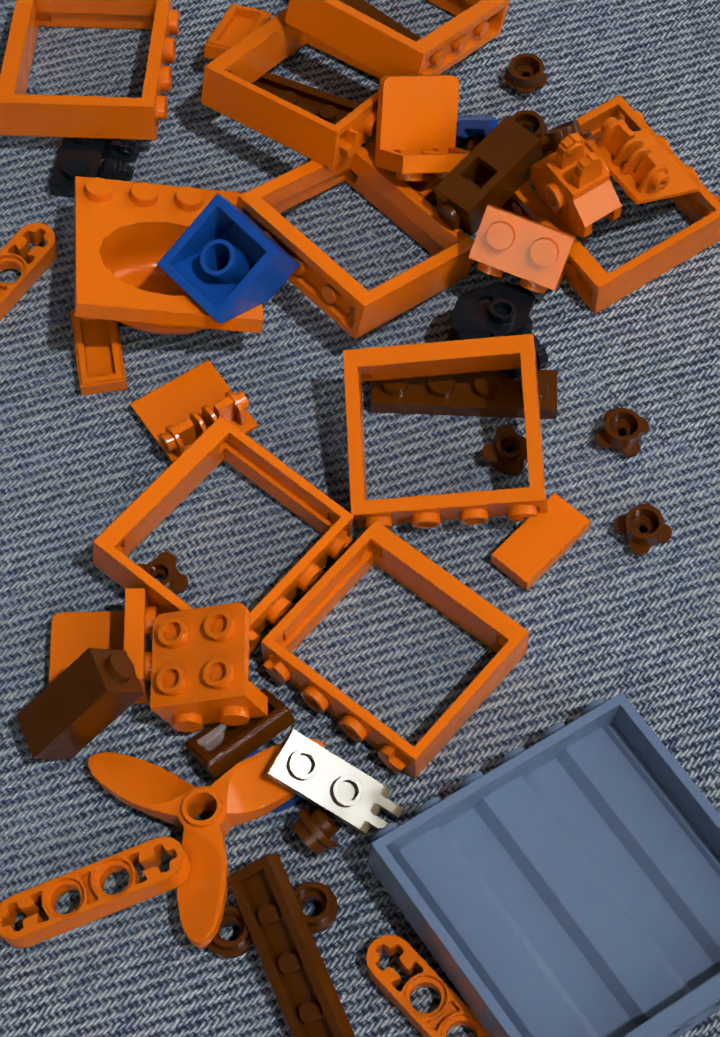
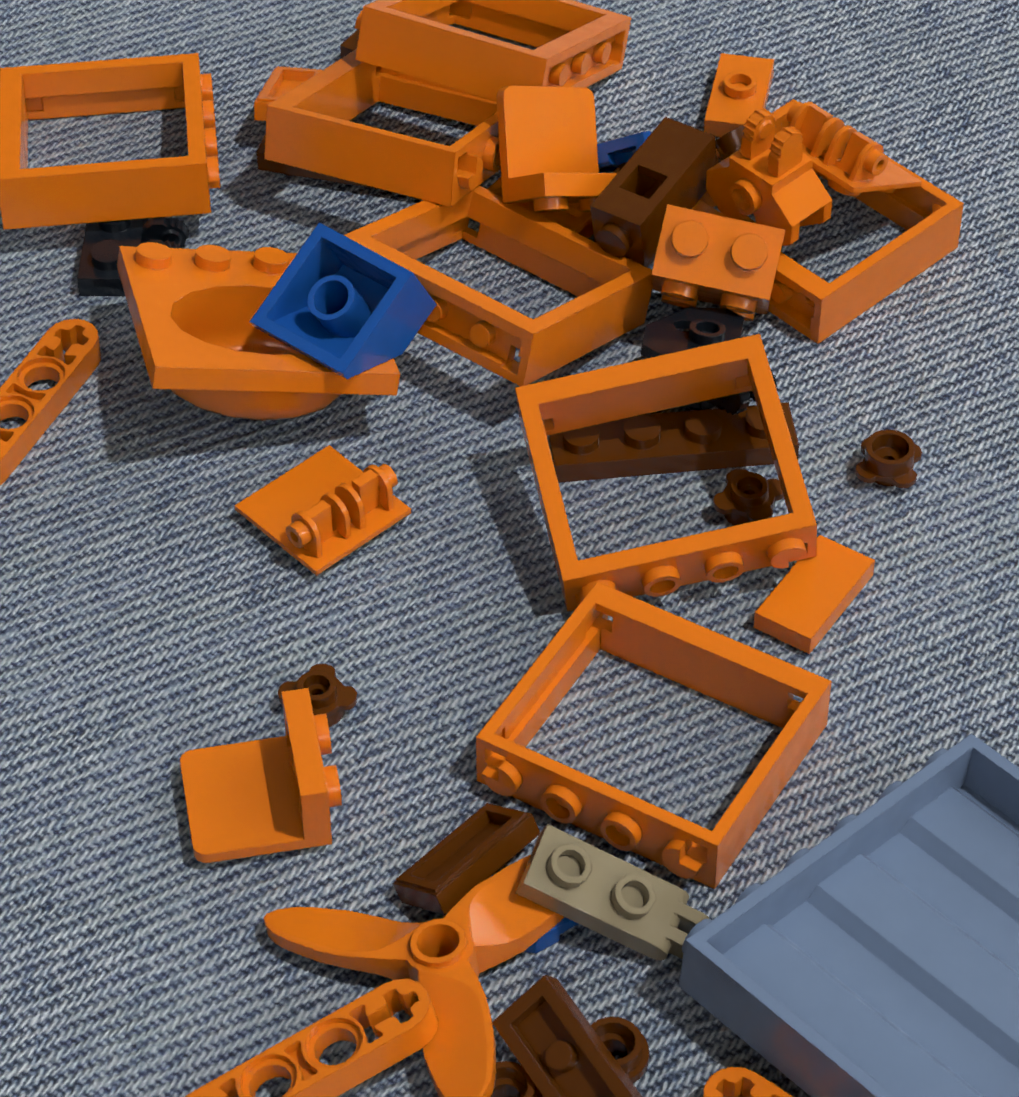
camera: 10 degrees left, 15 degrees down
(79, 704) = (246, 836): reddish brown brick -> none
(98, 355) = (179, 454): orange tile -> none
(204, 668) = (409, 775): orange bracket -> none
(216, 444) = (435, 551): orange window -> none
(316, 830) = (599, 956): reddish brown plate -> none
(526, 73) = (666, 98): reddish brown plate -> none
(583, 75) = (737, 91): none -> orange plate
(643, 516) = (944, 561): reddish brown plate -> none

